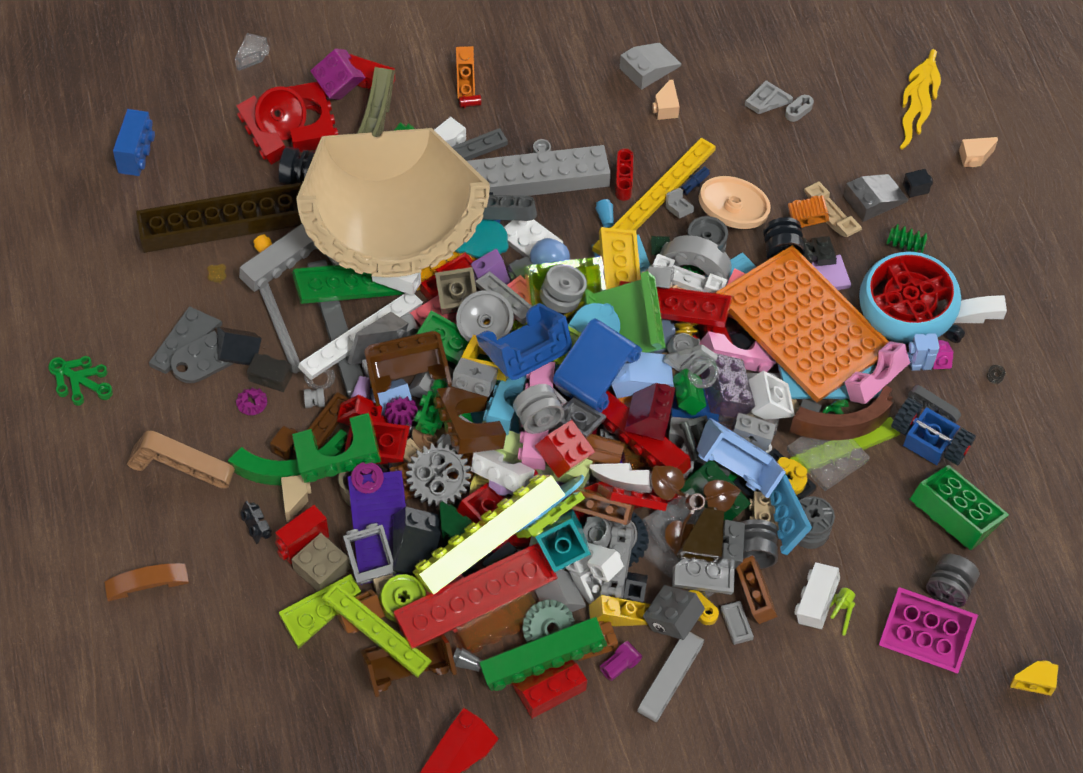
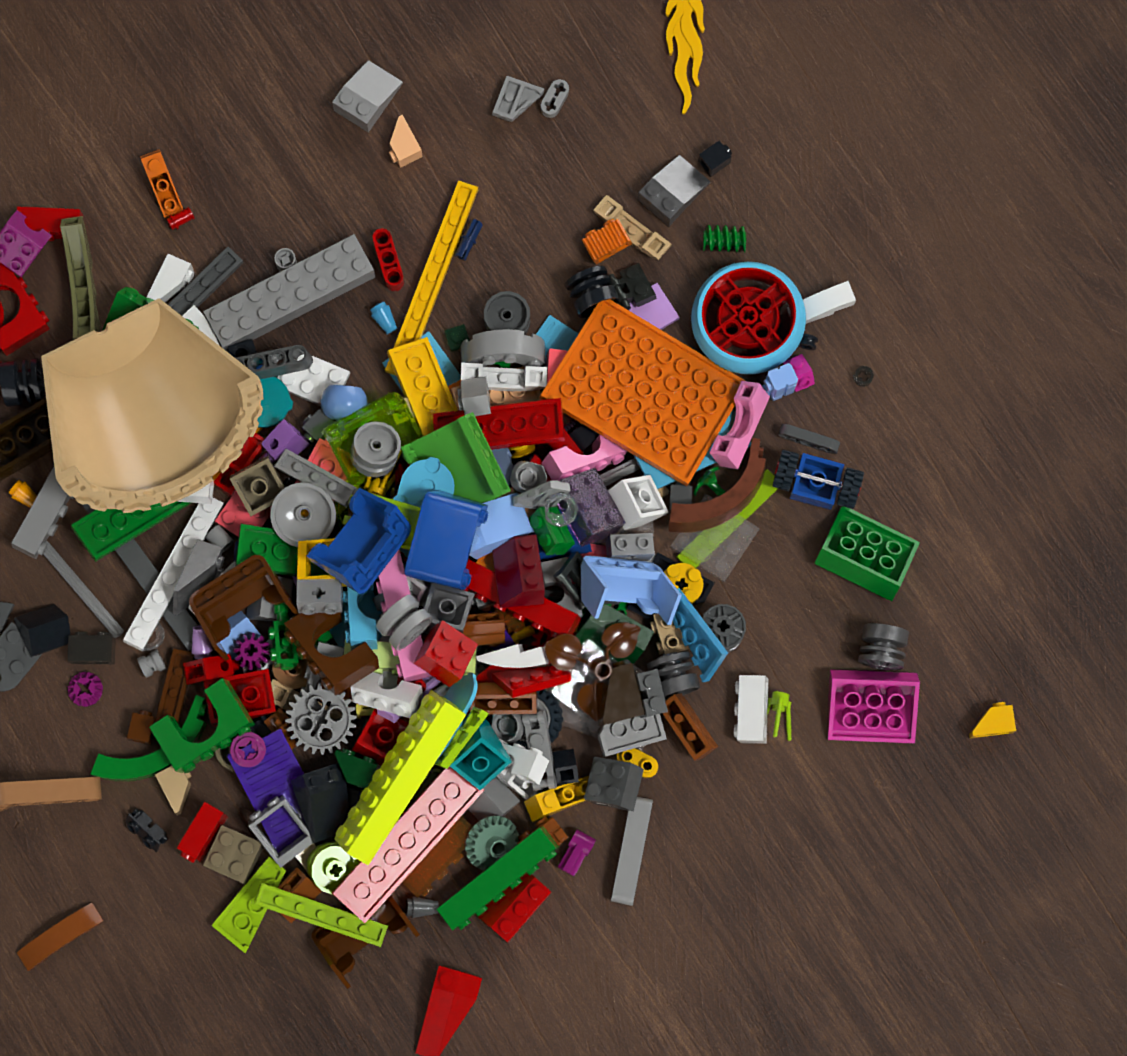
camera: 20 degrees left, 20 degrees up
(677, 204) = (461, 279): light grey bracket -> none
(734, 202) = (522, 257): light nougat dish -> none
(736, 622) = (678, 765): light grey tile -> none
(976, 151) = (767, 93): light nougat slope -> none

